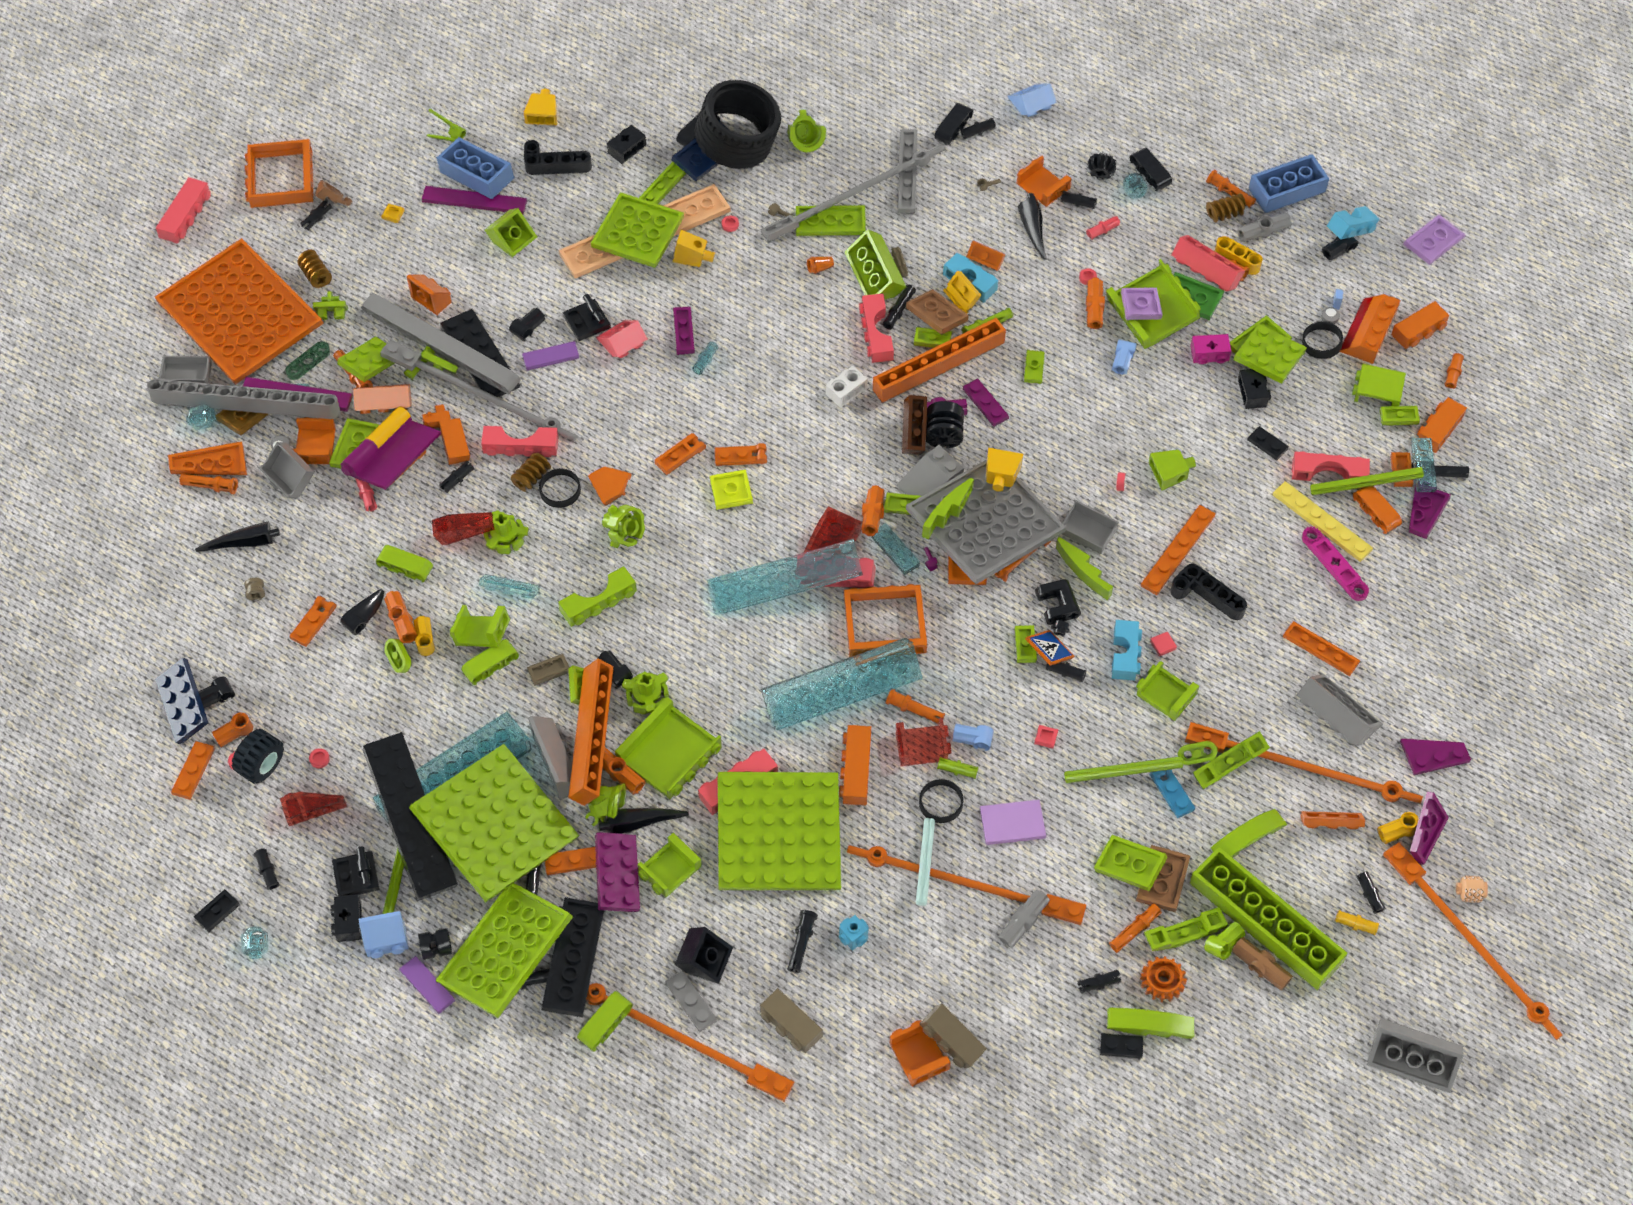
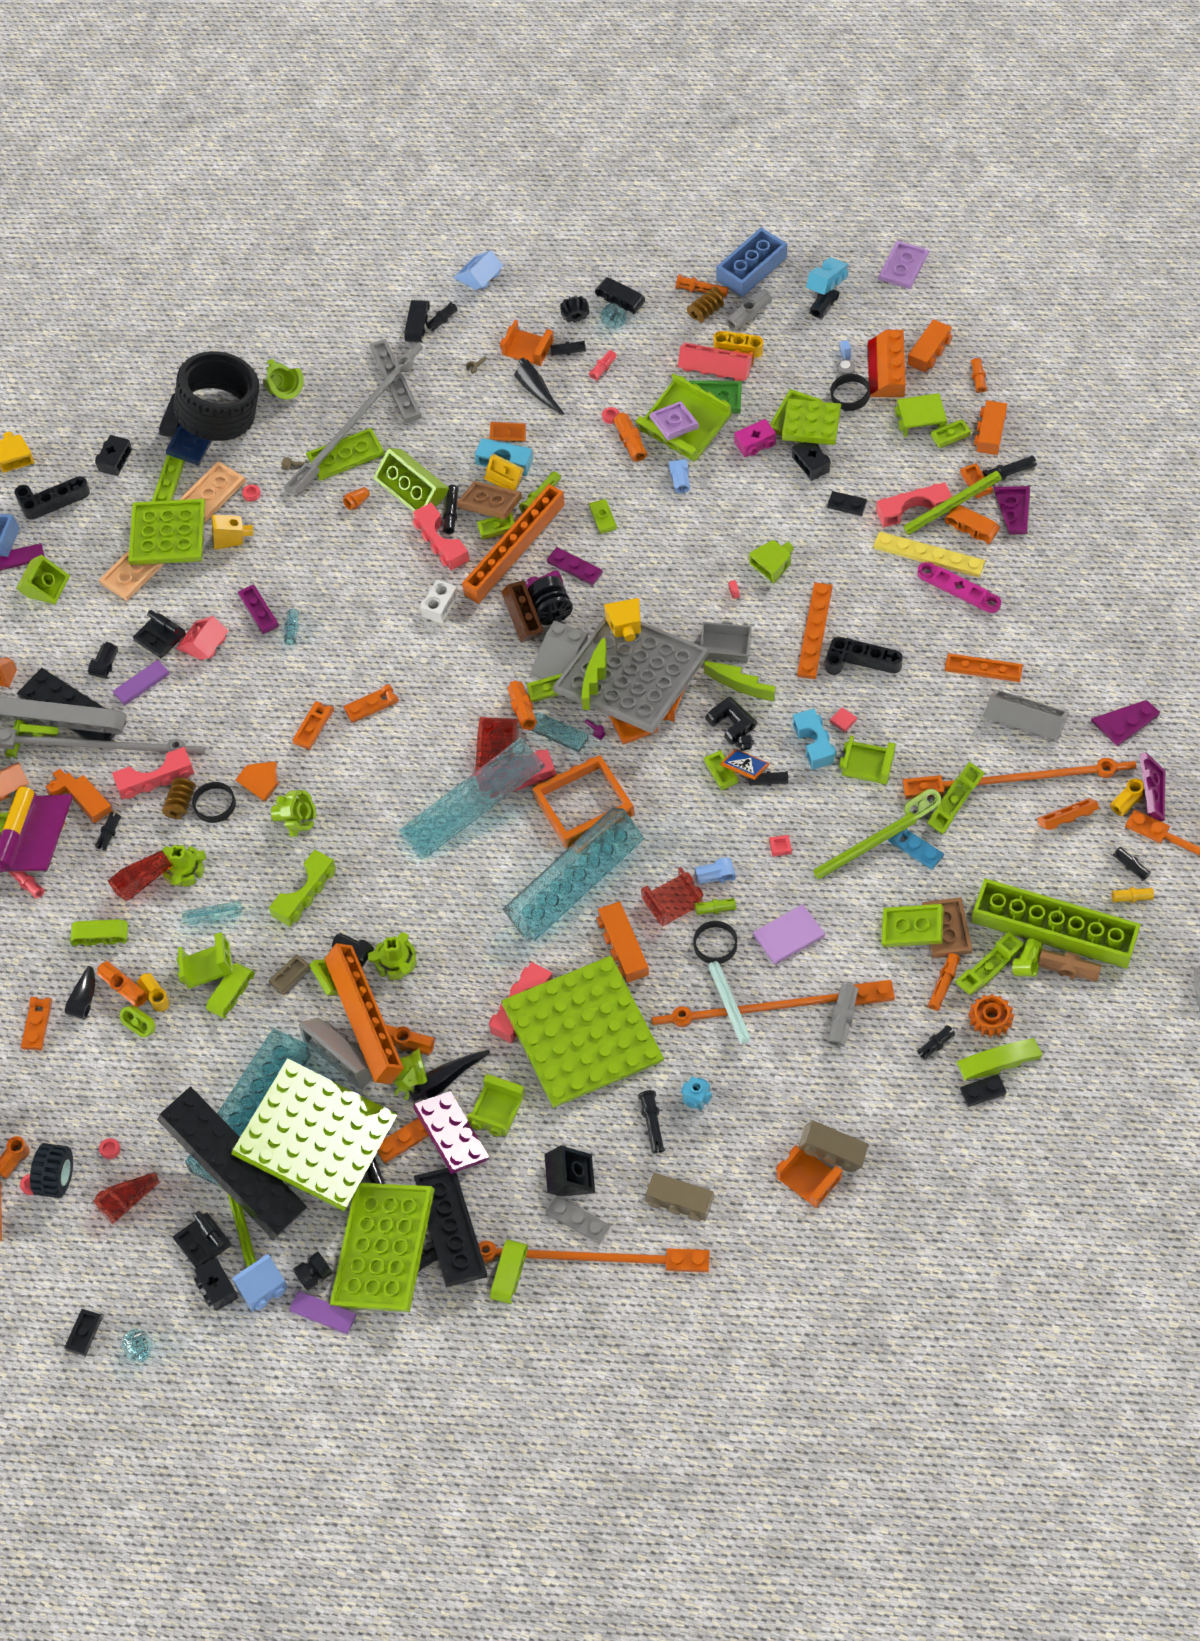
camera: 20 degrees left, 0 degrees up
(266, 869) = (112, 1272): black pin -> none
(668, 749) = (441, 1000): lime panel -> none
(731, 489) = (378, 738): neon yellow plate -> none
(899, 261) = (427, 464): dark tan axle -> none
(906, 703) = (639, 867): orange pin -> none
(1250, 832) = (1002, 855): lime slope -> none
(1423, 457) = (992, 462): clear light blue plate -> none

